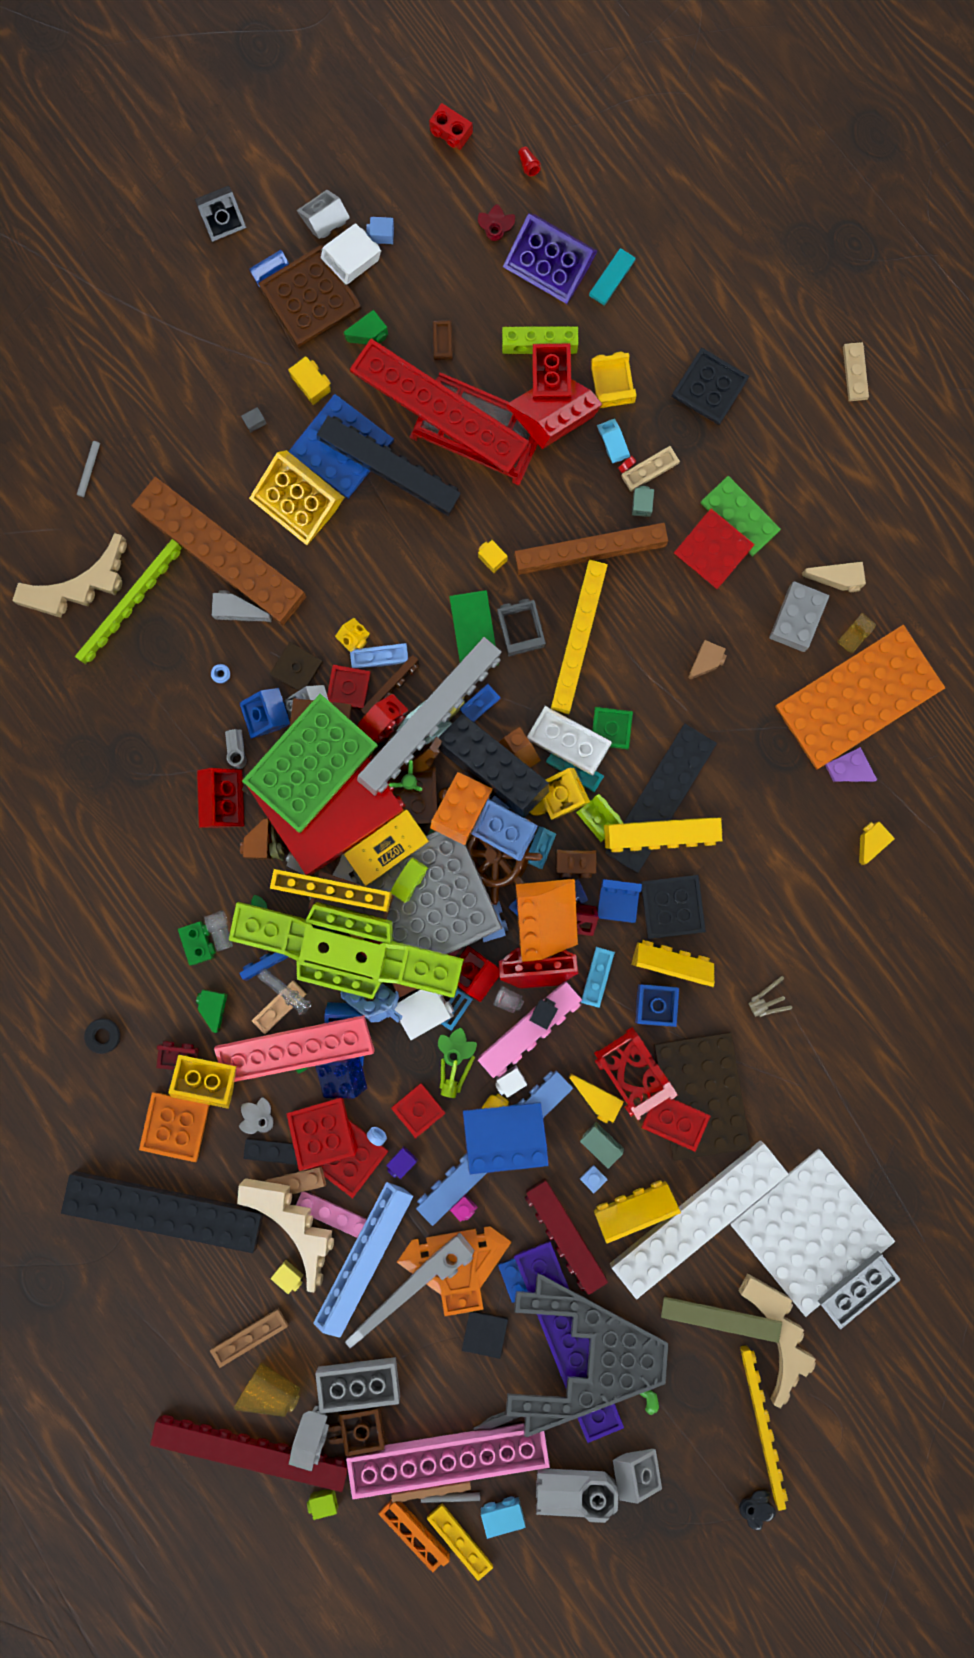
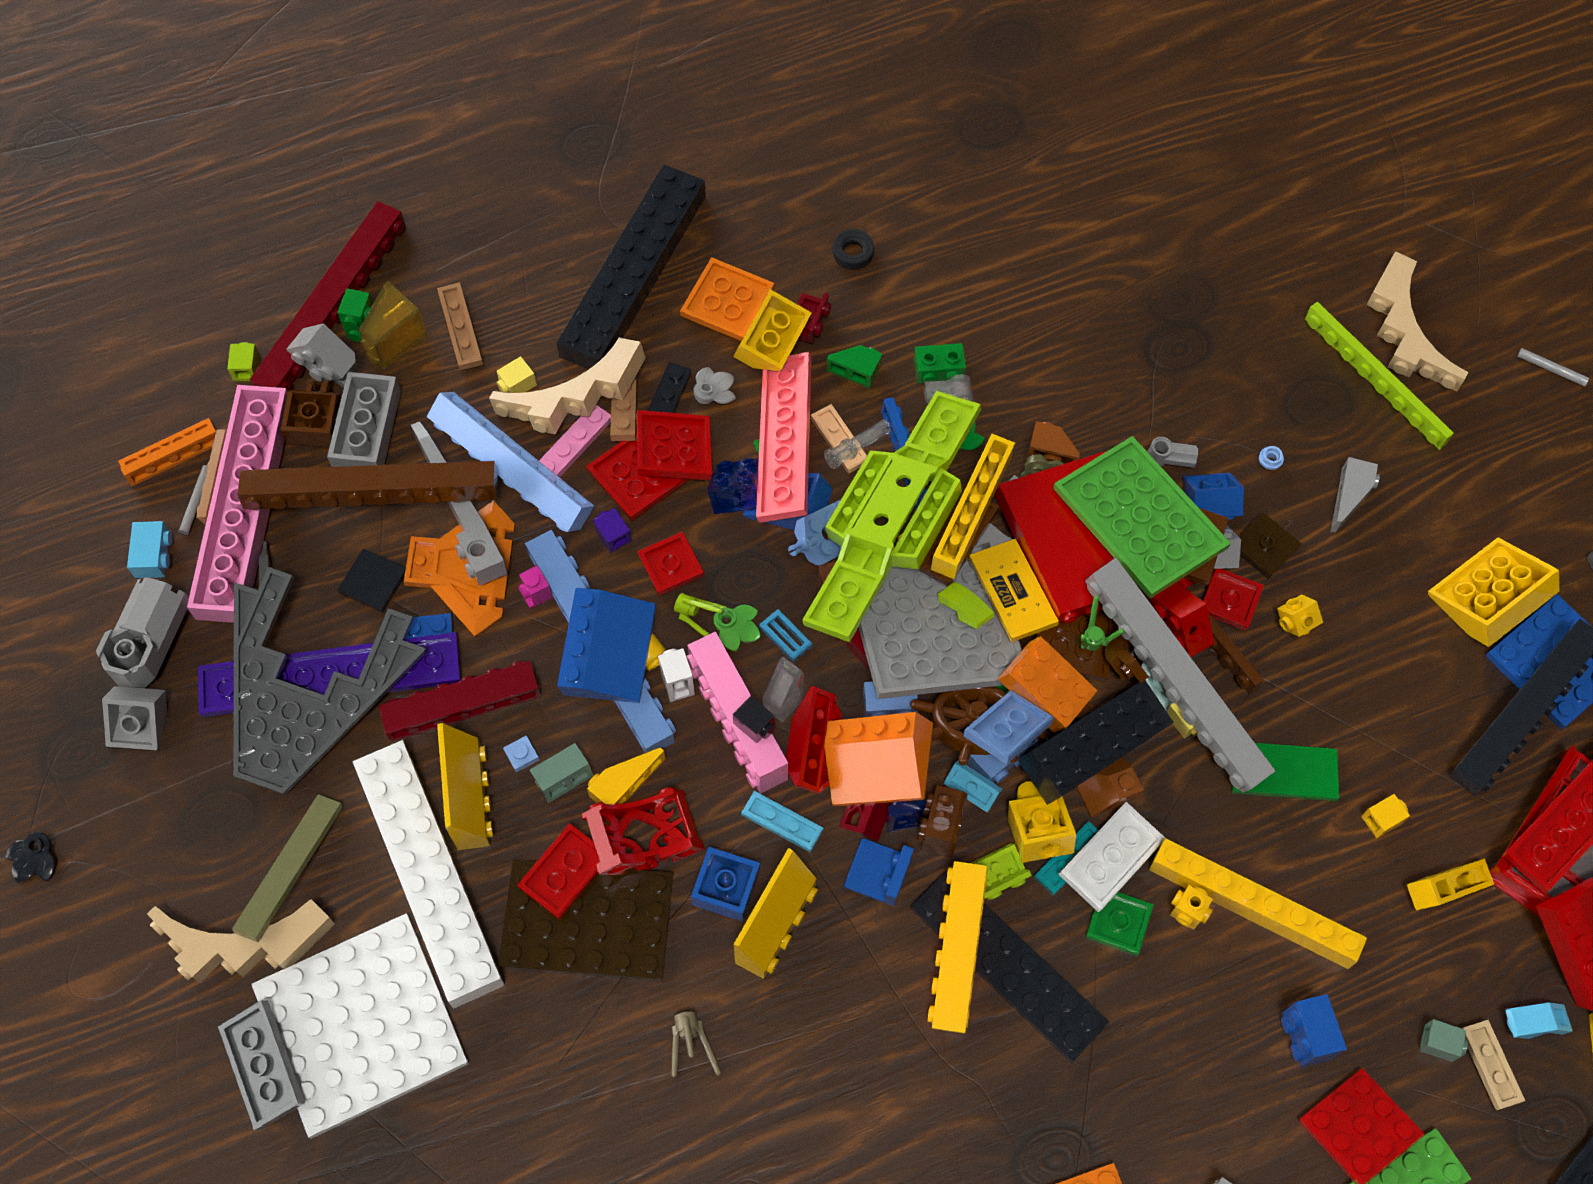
camera: 100 degrees right, 20 degrees down
(219, 551) = (1429, 486): dark orange brick -> none
(220, 798) = (1109, 421): red slope -> none
(263, 1426) = (353, 312): none -> green brick
(376, 1136) = (652, 508): light blue tile -> none
(379, 656) = (1266, 645): light blue tile -> none
(419, 1362) = (367, 485): none -> reddish brown brick
(423, 1012) = (790, 591): white brick -> none
(460, 1542) = (140, 497): yellow plate -> none
(477, 974) = (825, 664): red slope -> none
(480, 703) = (1182, 754): blue plate -> none
(525, 646) = (1254, 836): dark grey window -> none
(534, 508) = (1450, 884): none -> yellow slope
(591, 548) = (1382, 952): dark orange brick -> none
(592, 687) = (1188, 914): none -> yellow brick
(627, 464) = (1502, 1032): red tile -> none
(652, 1402) = (218, 758): bright green arm -> none
(661, 587) = (1313, 1031): none -> blue brick
(673, 907) = (853, 942): black plate -> none
(708, 659) = (1196, 1075): medium nougat slope -> none
(766, 1435) = (139, 889): yellow plate -> none

